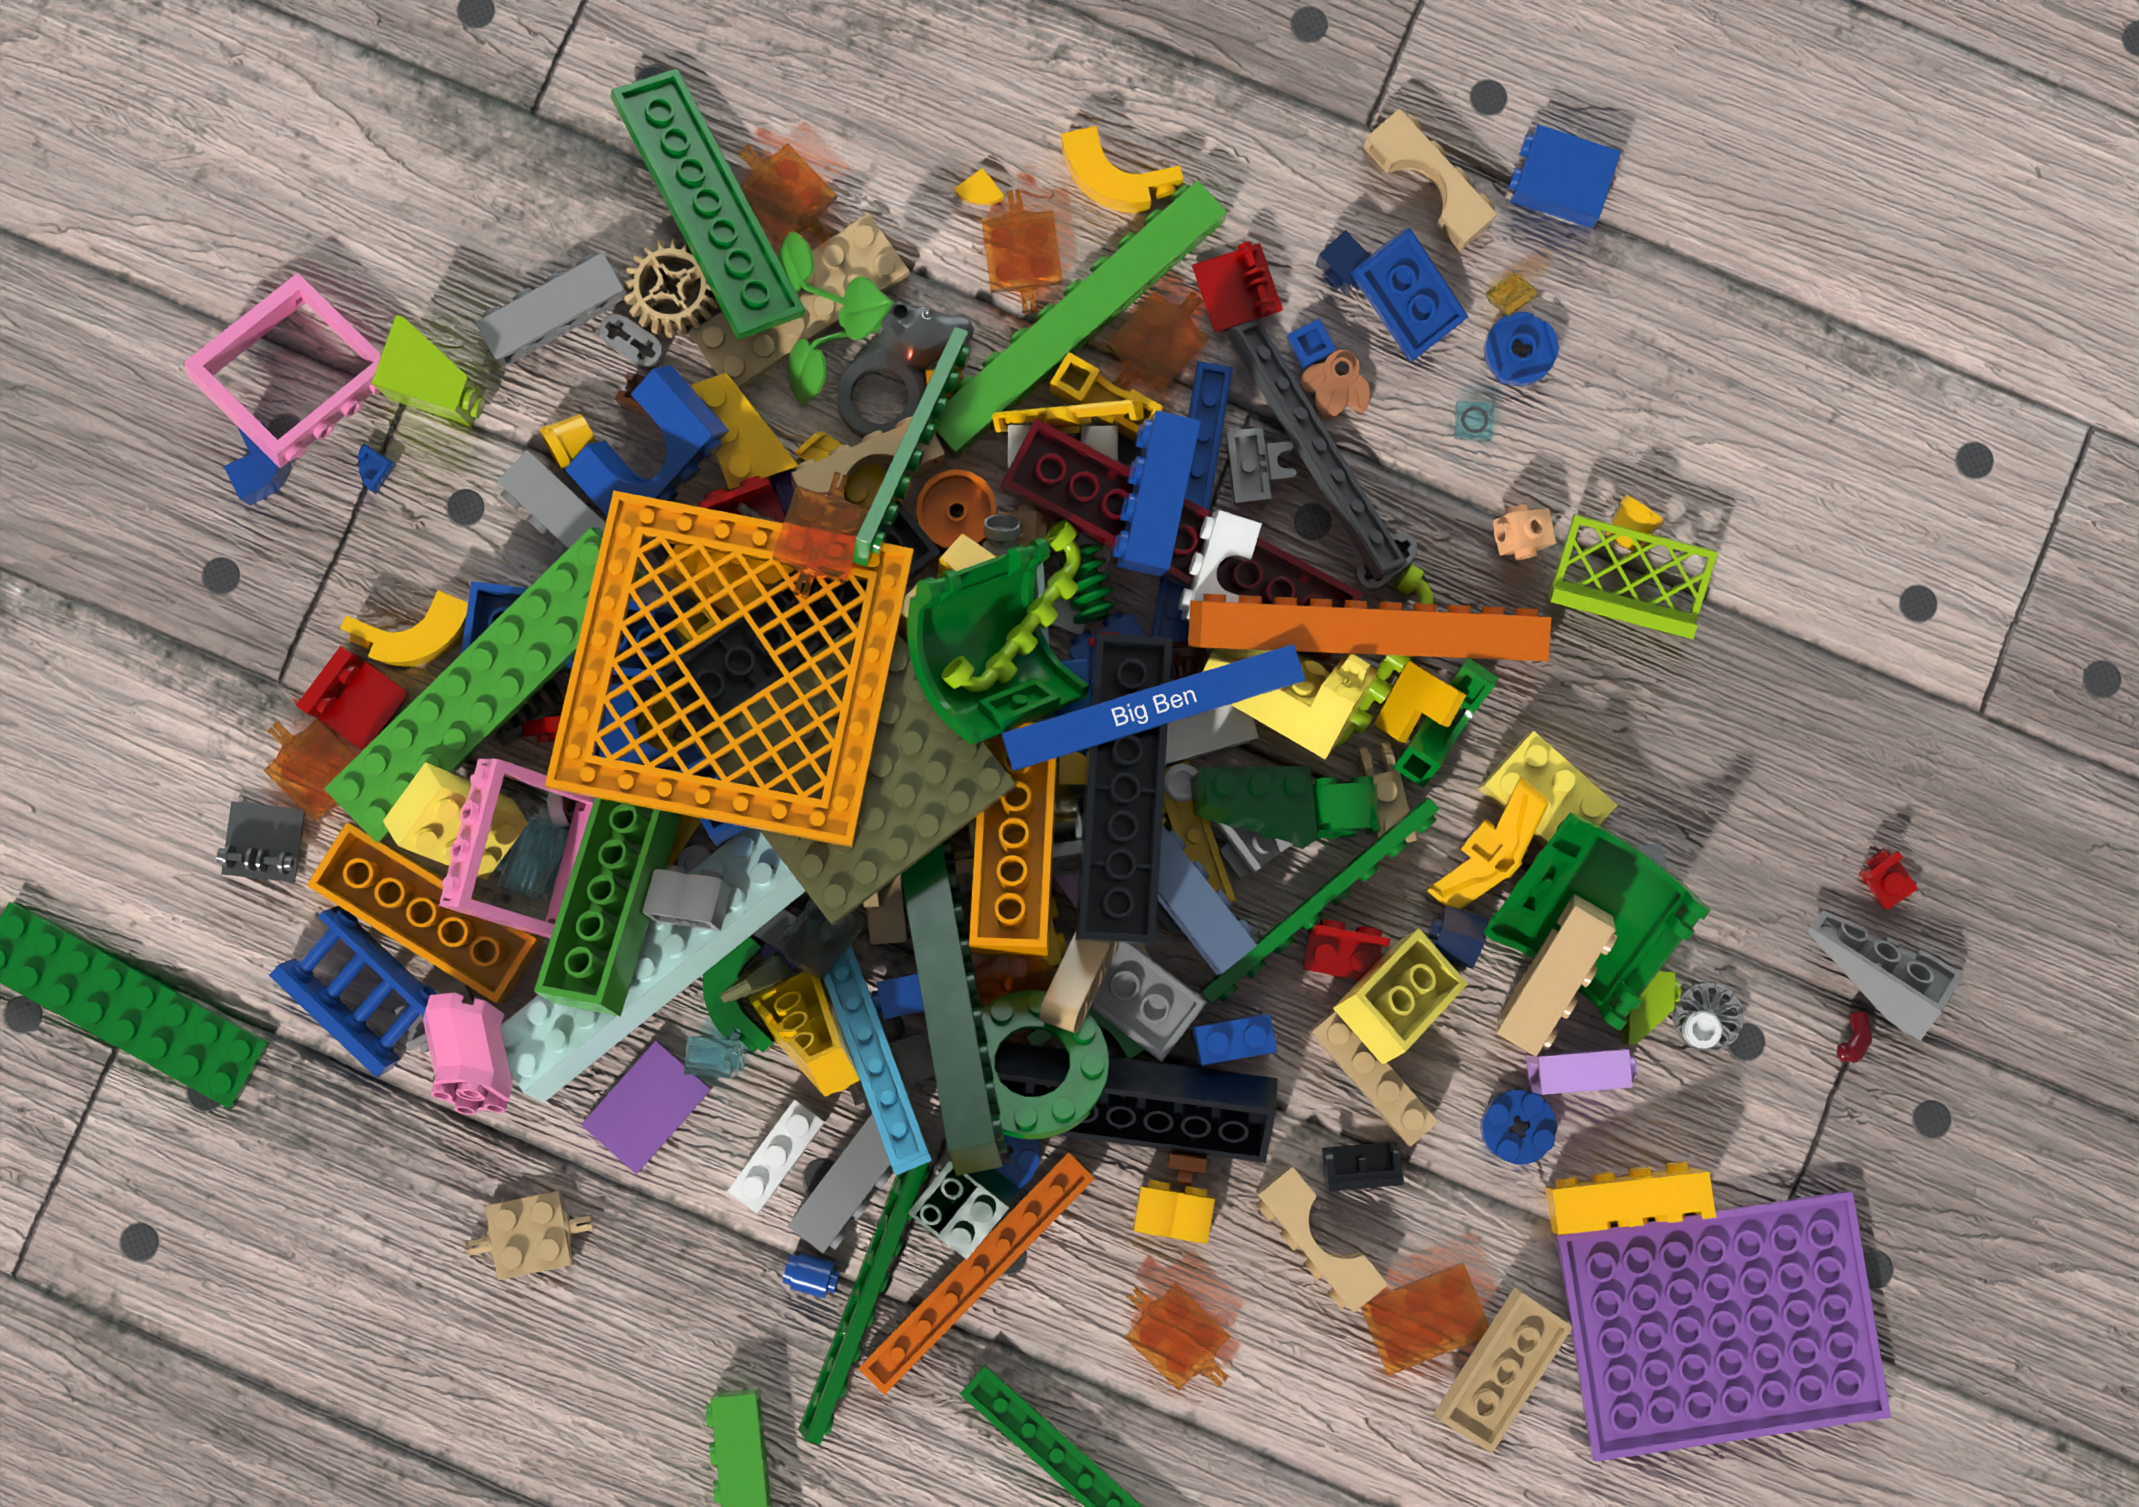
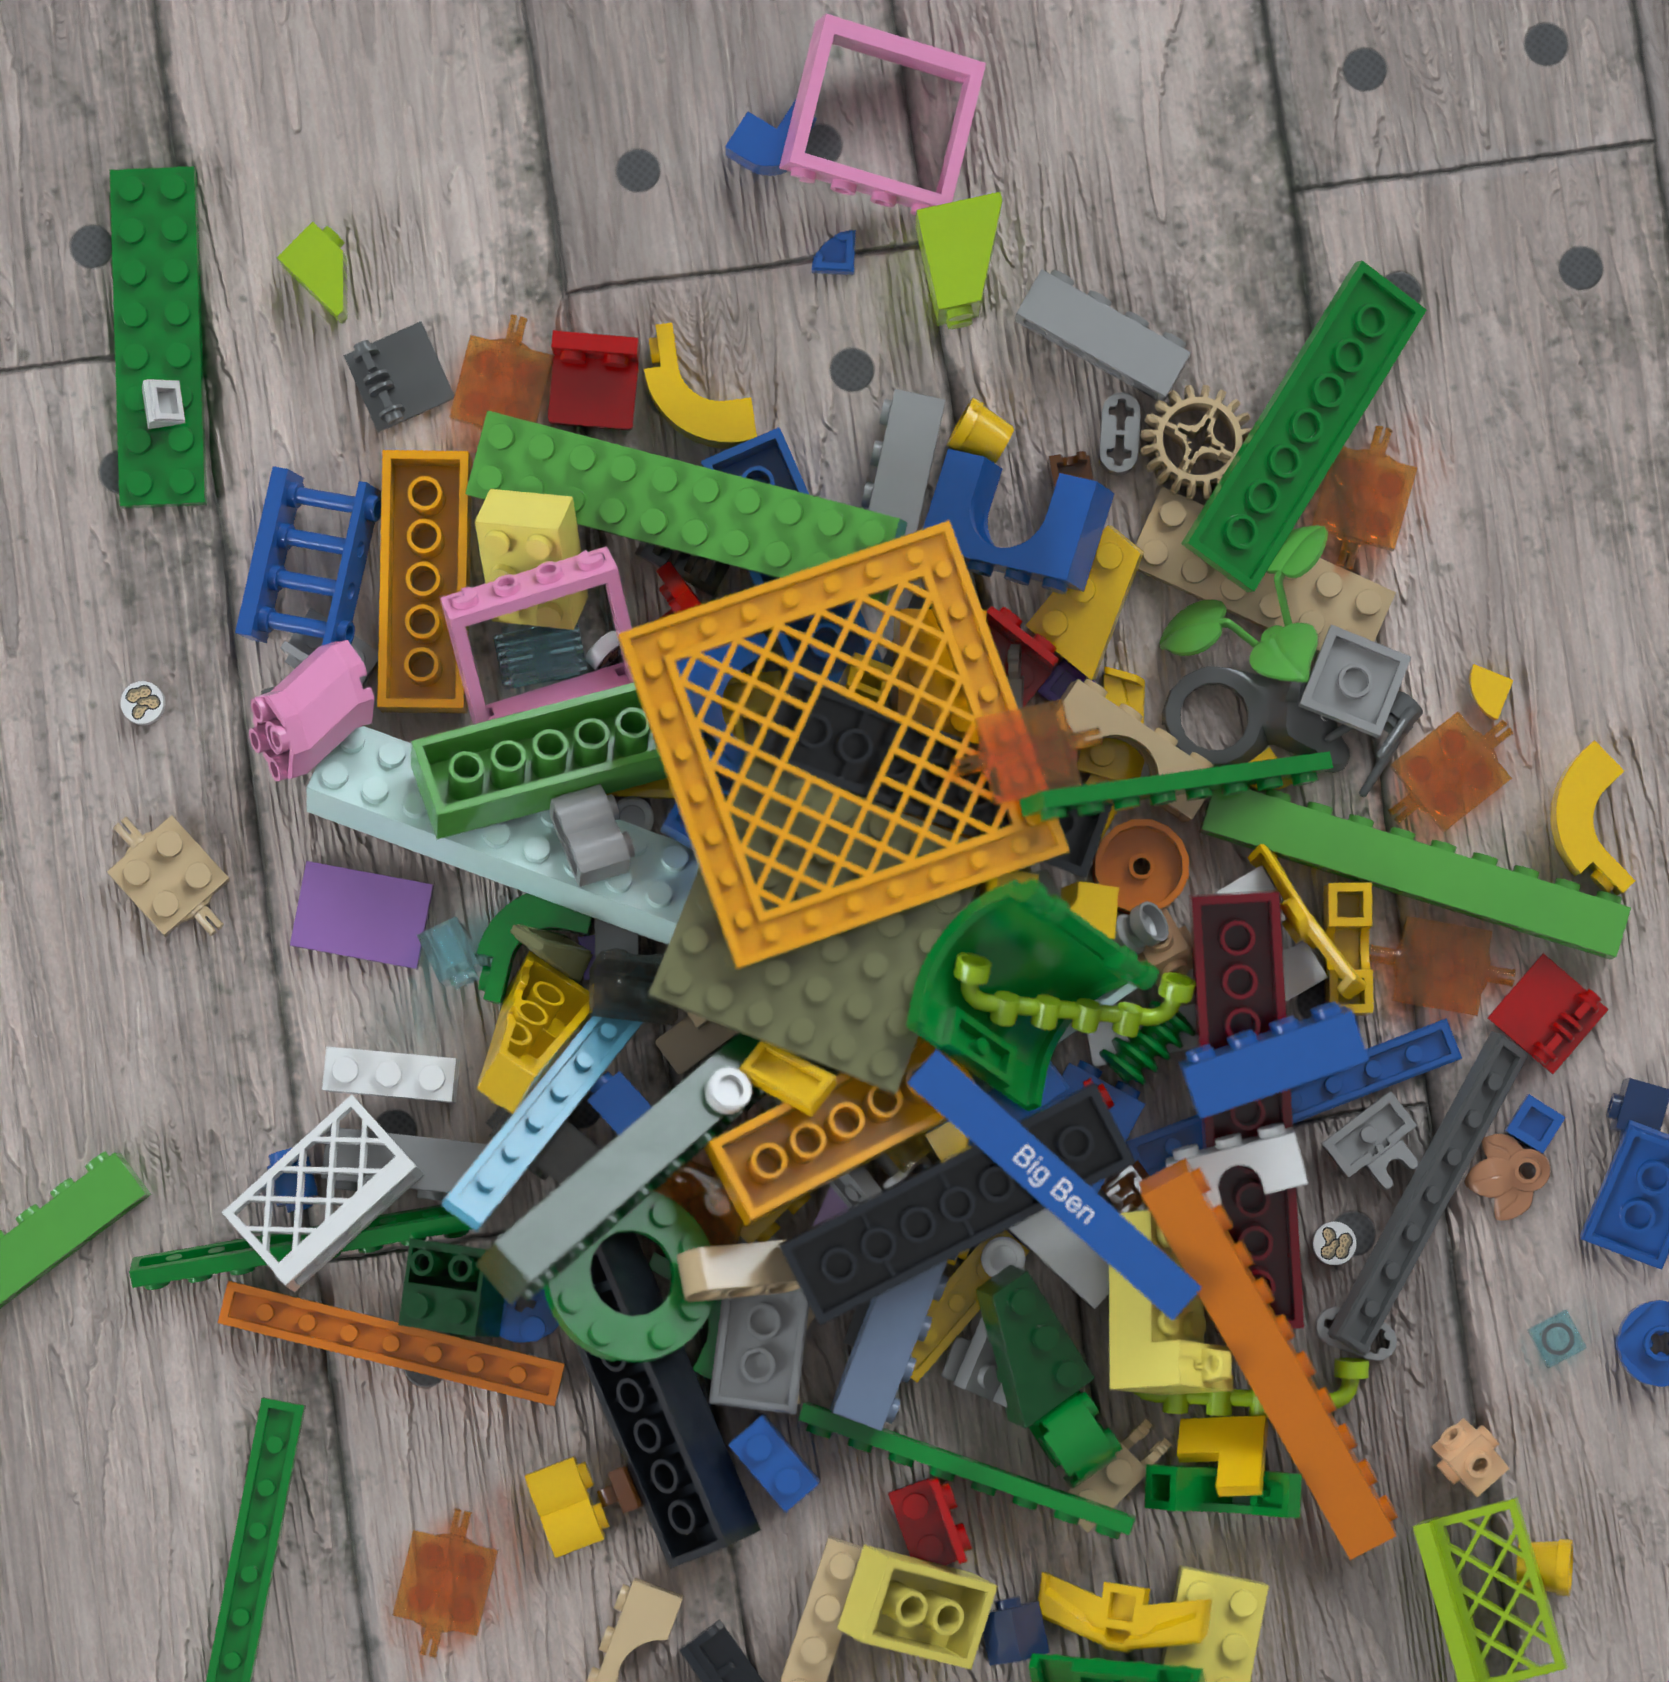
camera: 65 degrees right, 0 degrees up
(143, 852) = (320, 267): none -> lime slope
(170, 1030) = (162, 403): none -> white slope
(388, 1178) = (143, 703): none -> tile
(866, 1253) = (348, 1219): none -> white fence
(915, 277) = (1354, 681): none -> light grey plate
(939, 908) = (728, 1090): none -> white tile
(956, 857) = (788, 1077): none -> yellow tile
(960, 266) = (1400, 721): none -> dark grey plant
(1311, 538) = (1334, 1243): none -> tile

